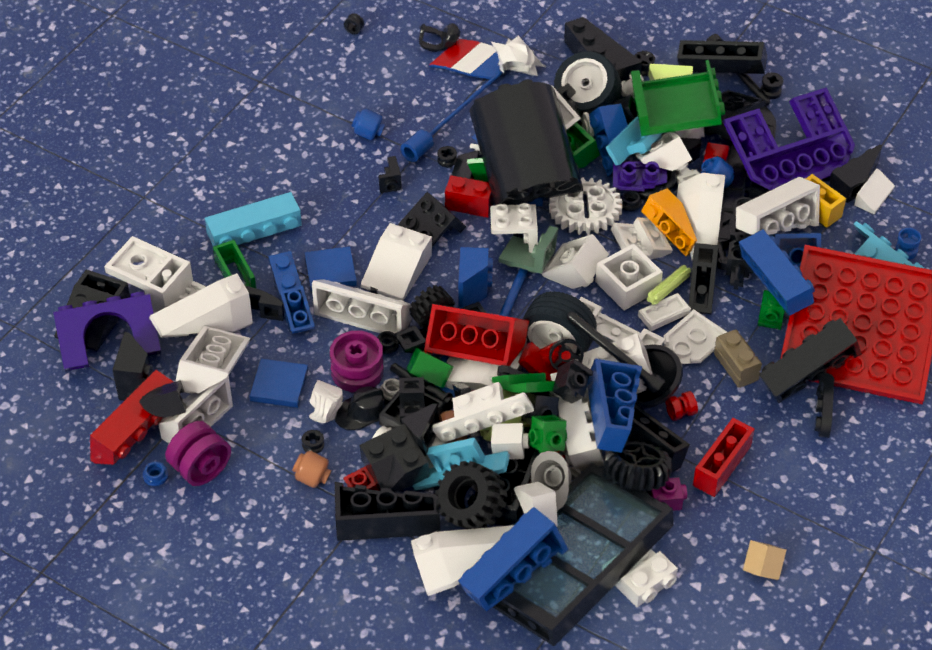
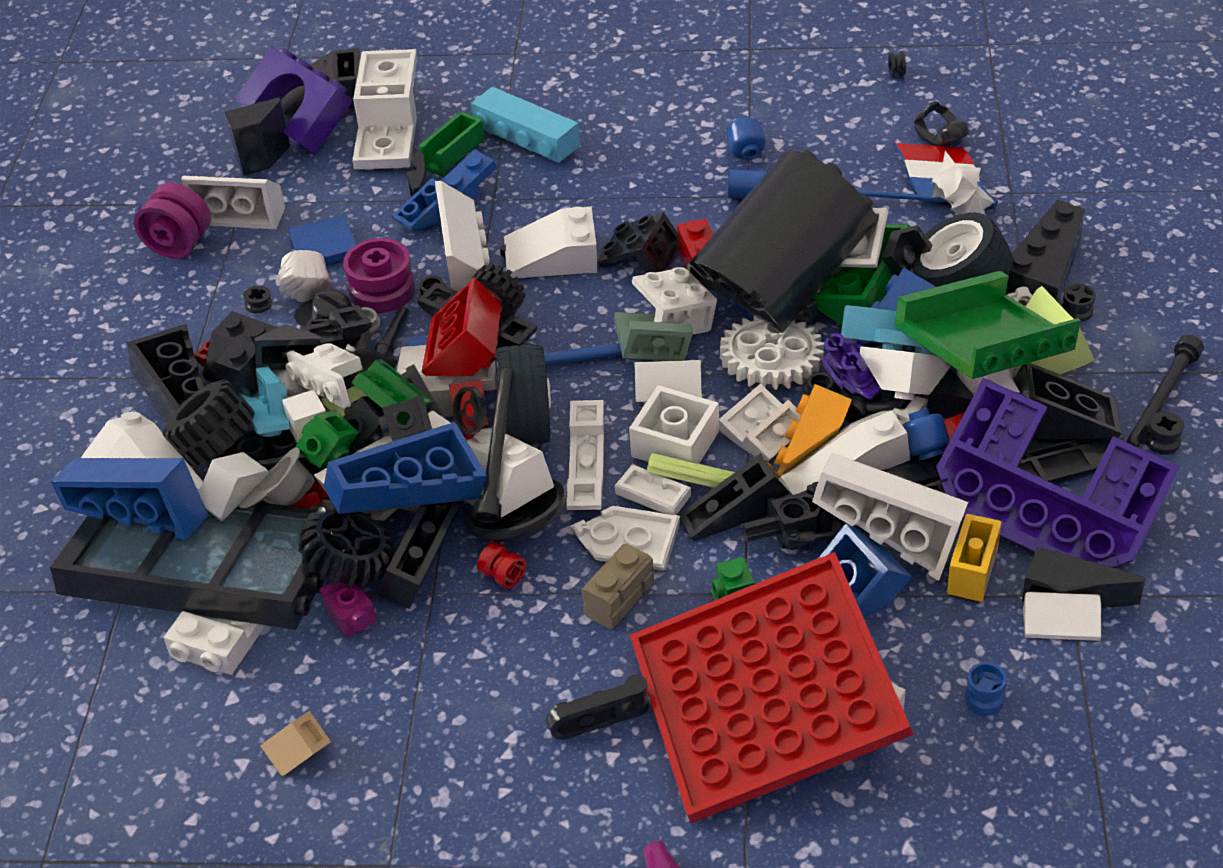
camera: 65 degrees right, 5 degrees down
(125, 425) = (178, 156): red slope -> none
(165, 400) = (201, 157): black brick -> none
(210, 359) = (288, 163): white slope -> none
(220, 306) = (366, 143): white wedge -> none
(311, 469) = (209, 308): nougat head -> none
(331, 265) = (512, 207): blue tile -> none
(392, 178) = (684, 188): black bracket -> none
(430, 367) = (403, 325): green slope -> none
(474, 275) = (560, 301): blue slope -> none
(723, 56) = (1150, 356): black brick -> none
(723, 457) = (432, 632): red brick -> none
(777, 272) = (758, 543): blue brick -> none
(810, 360) = (651, 647): black wedge -> none
(880, 247) = (940, 674): medium azure bracket -> none

